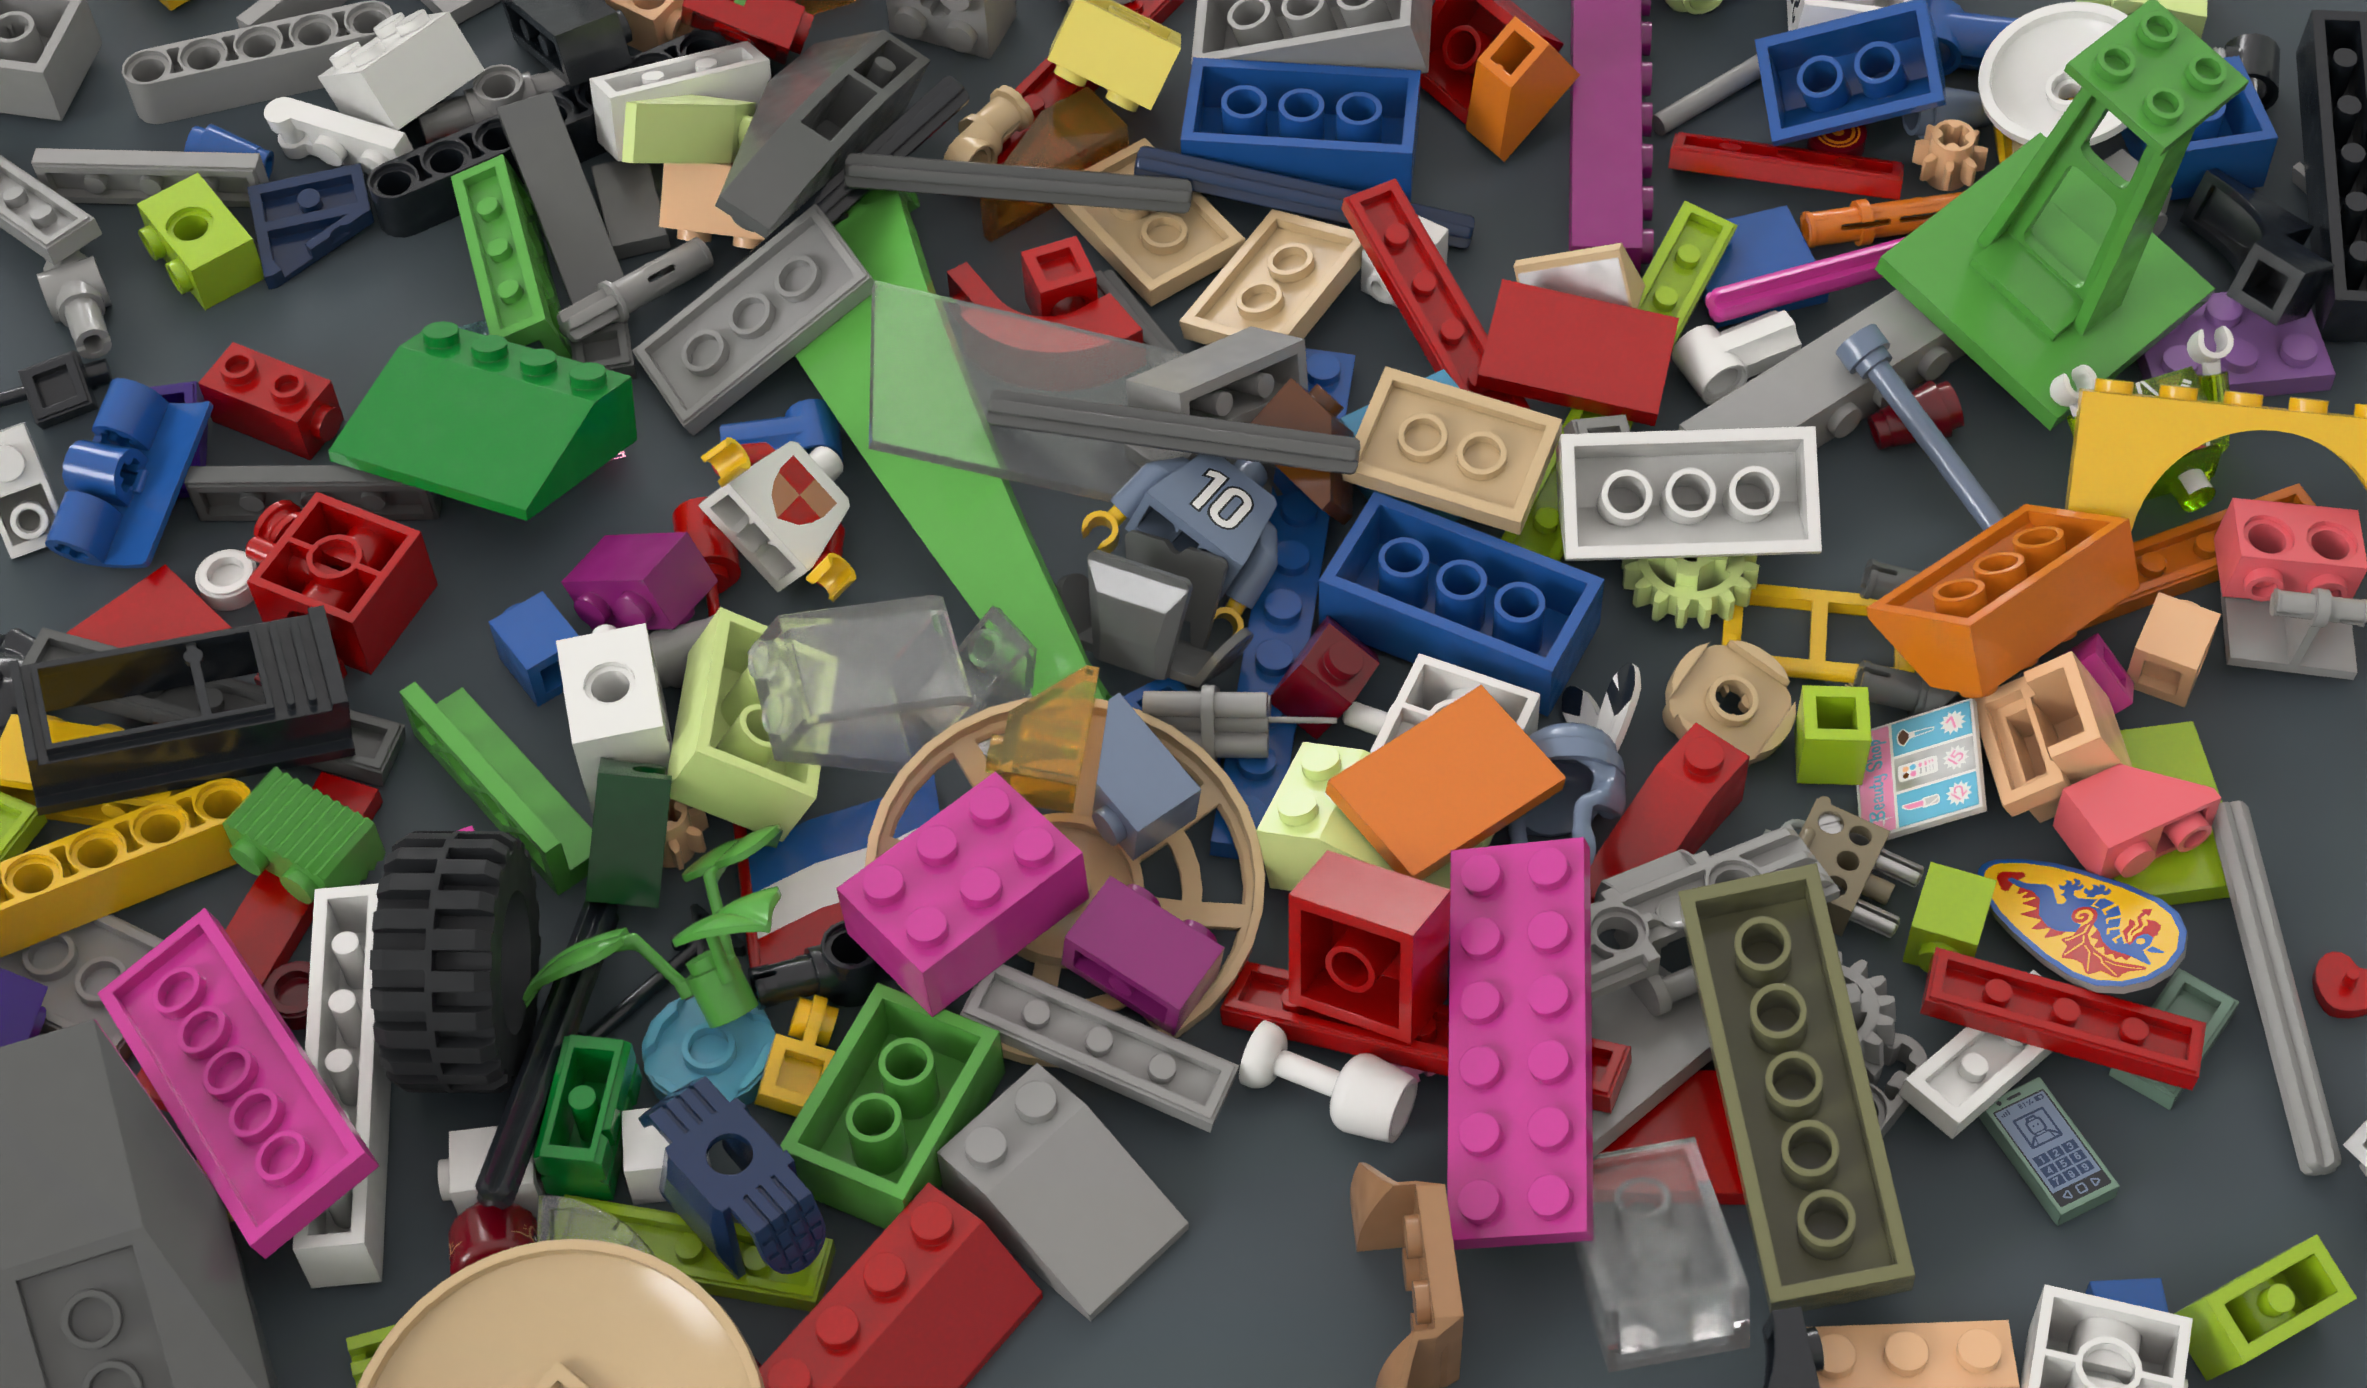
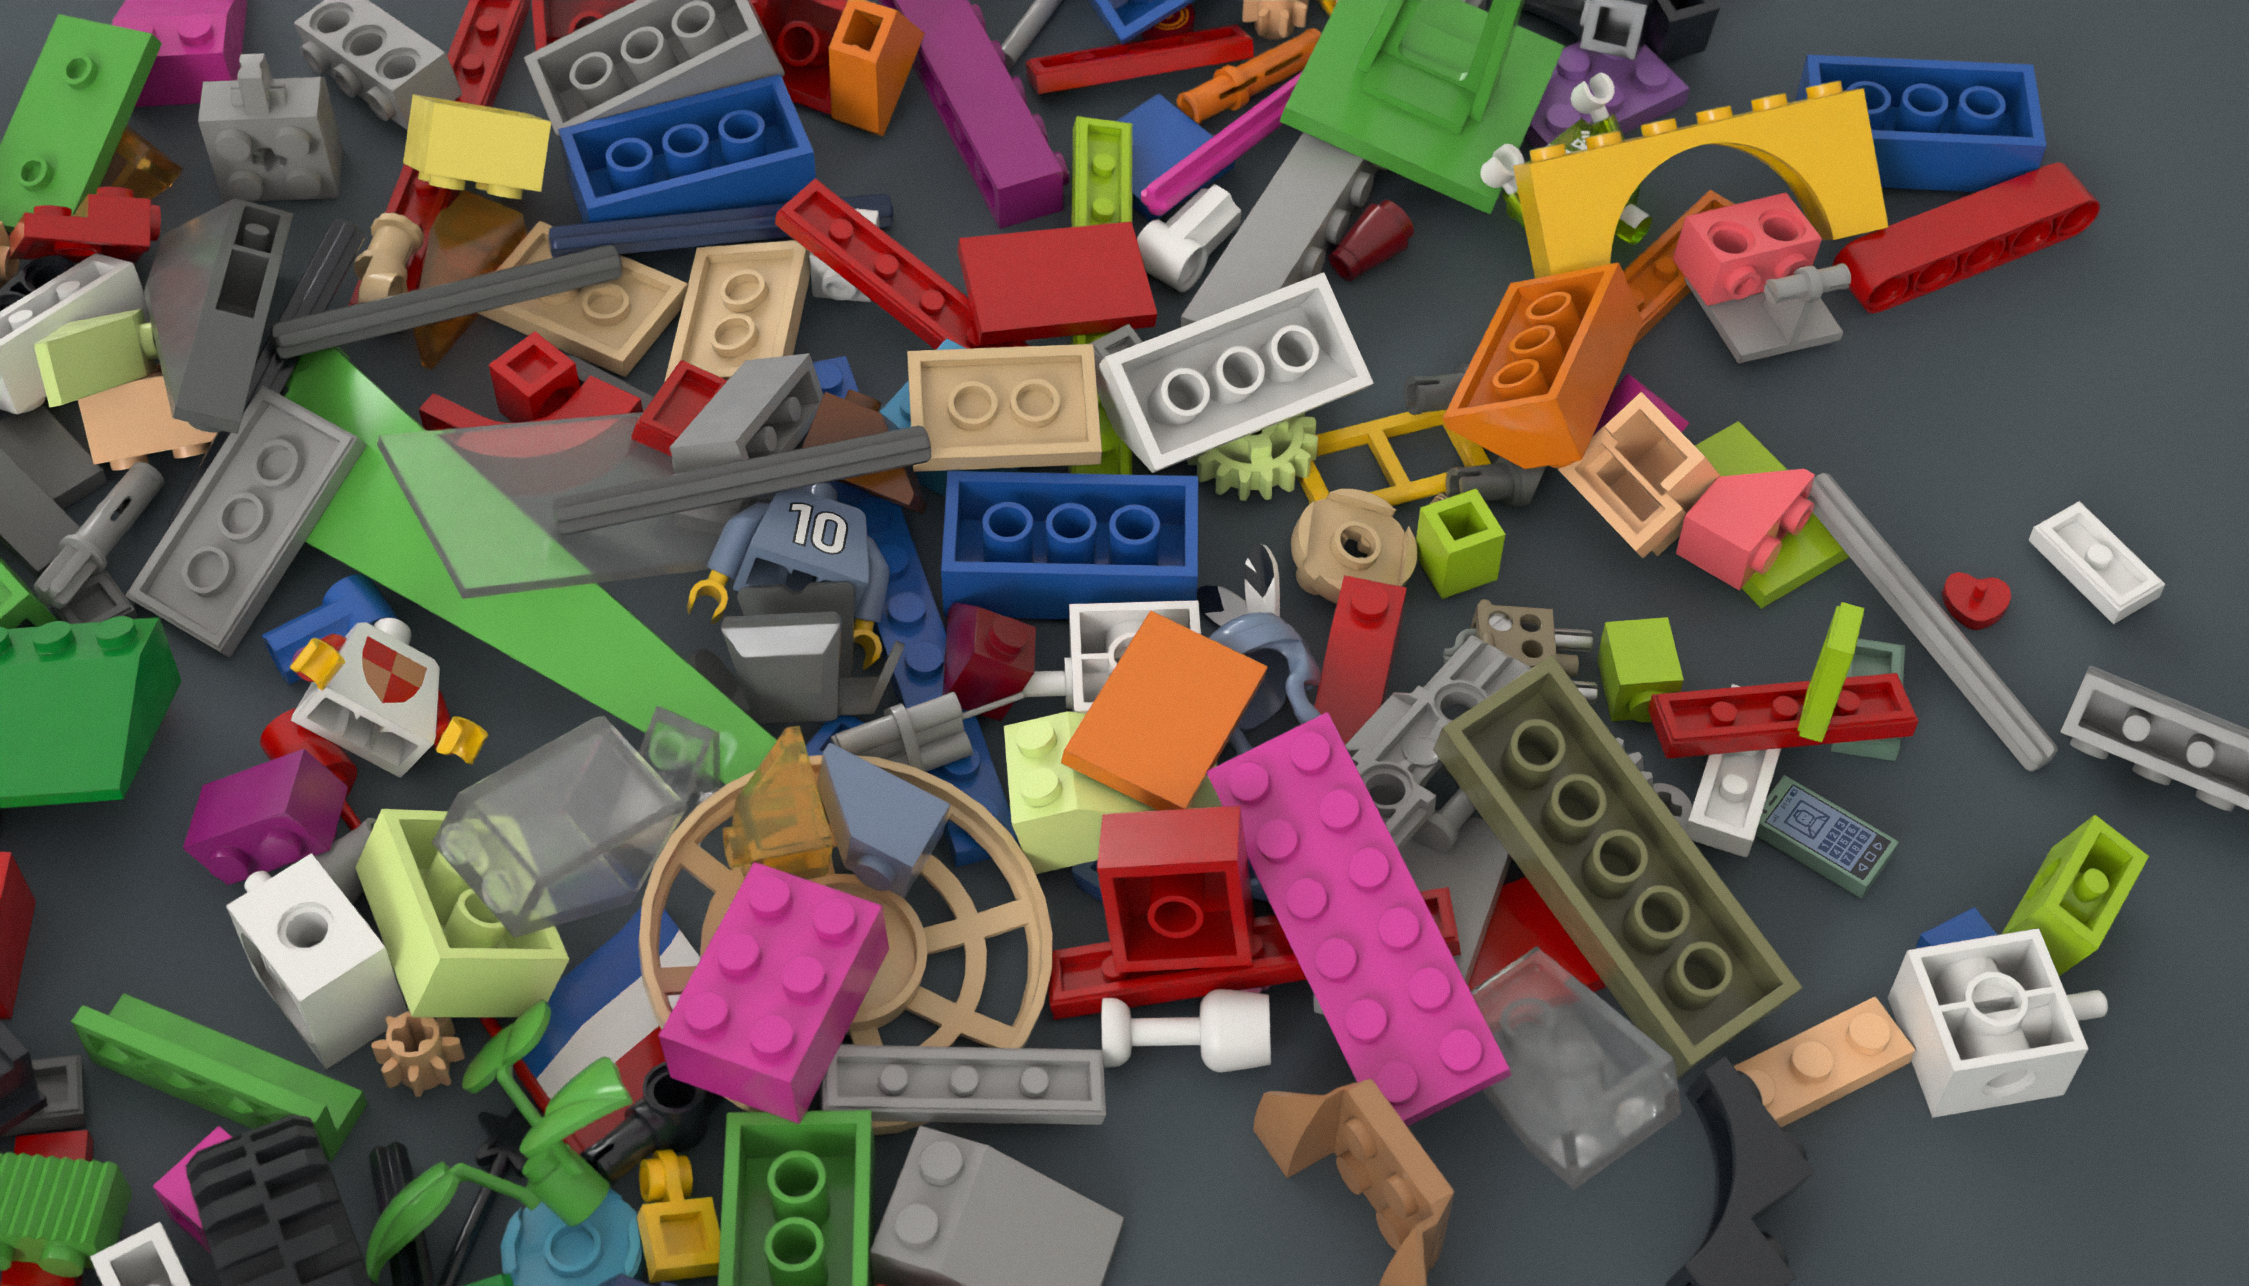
camera: 30 degrees left, 0 degrees up
(528, 647) = (185, 923): blue brick -> none
(628, 833) = (389, 1069): dark green hinge -> none
(1143, 954) = (967, 982): magenta brick -> none
(1167, 342) = (676, 406): none -> red tile
(1593, 273) = (1033, 206): slope -> none
(1869, 357) = (1319, 201): sand blue piece -> none
(1924, 771) = (1553, 546): piece -> none
(2087, 925) = (1749, 627): shield -> none
(2109, 988) = (1830, 671): none -> lime tile
(2172, 649) = (1691, 365): light nougat brick -> none

